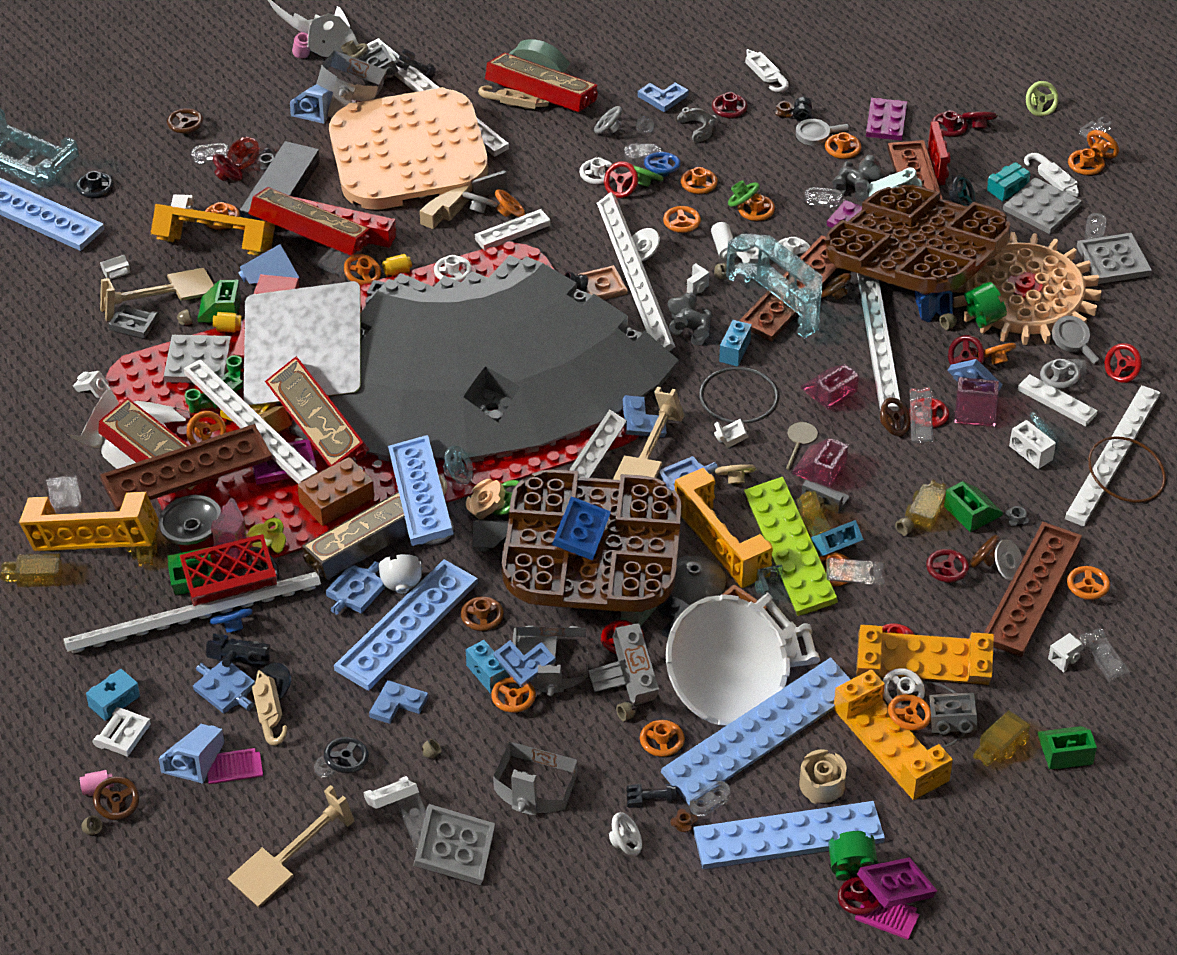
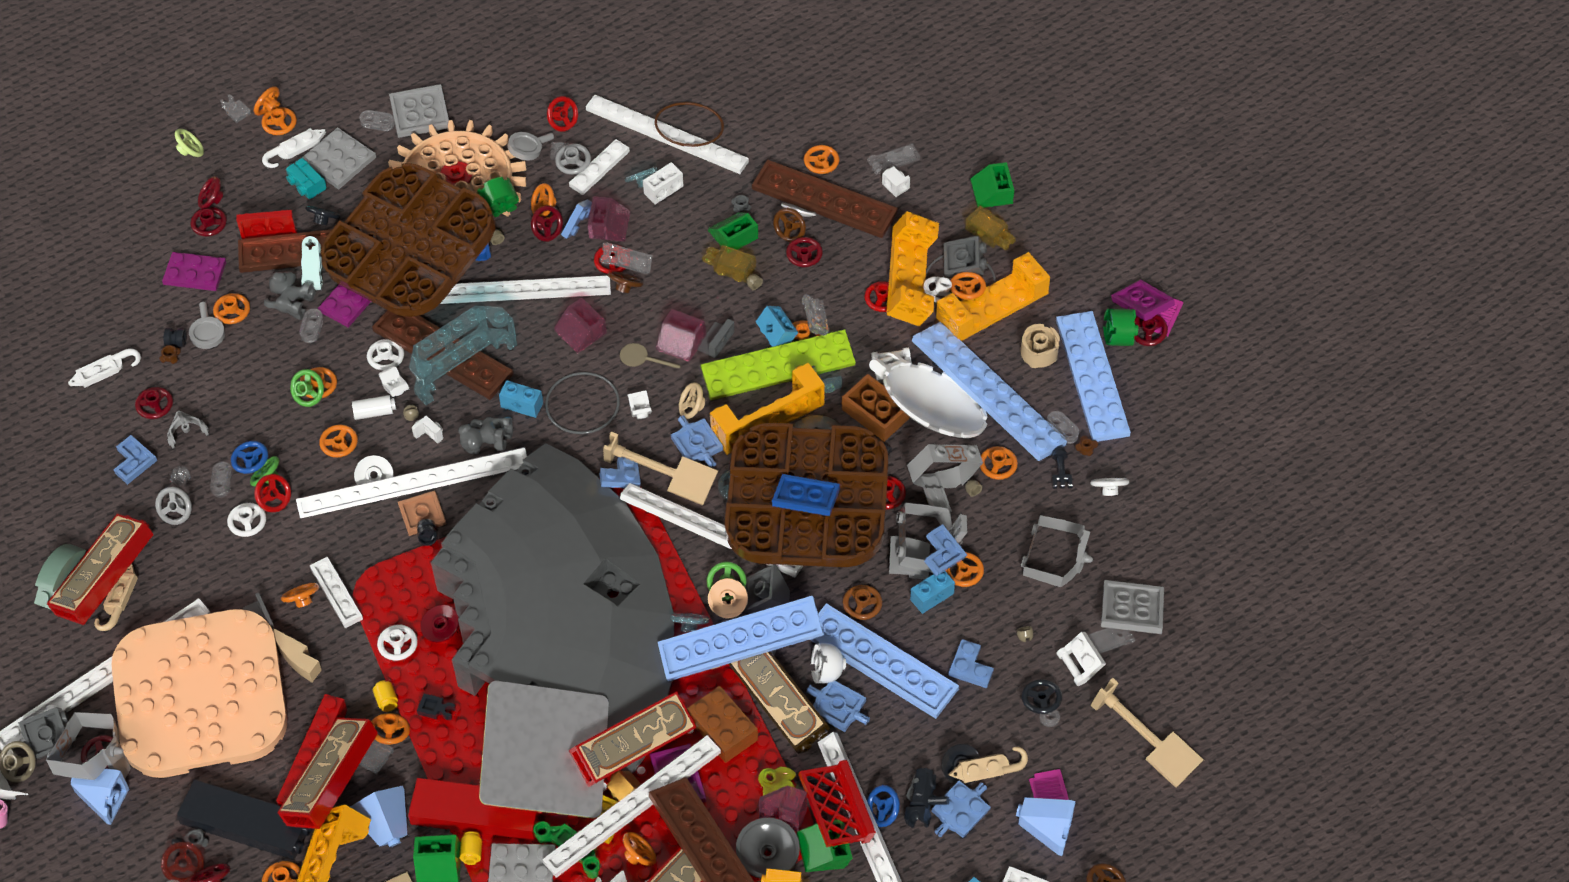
camera: 90 degrees left, 10 degrees up
(429, 70) = (54, 685): black hinge -> none
(479, 203) = (292, 622): light grey piece -> none
(699, 178) = (270, 427): orange piece -> none
(813, 513) = (748, 341): clear yellow brick -> none
(837, 287) = (448, 316): reddish brown piece -> none

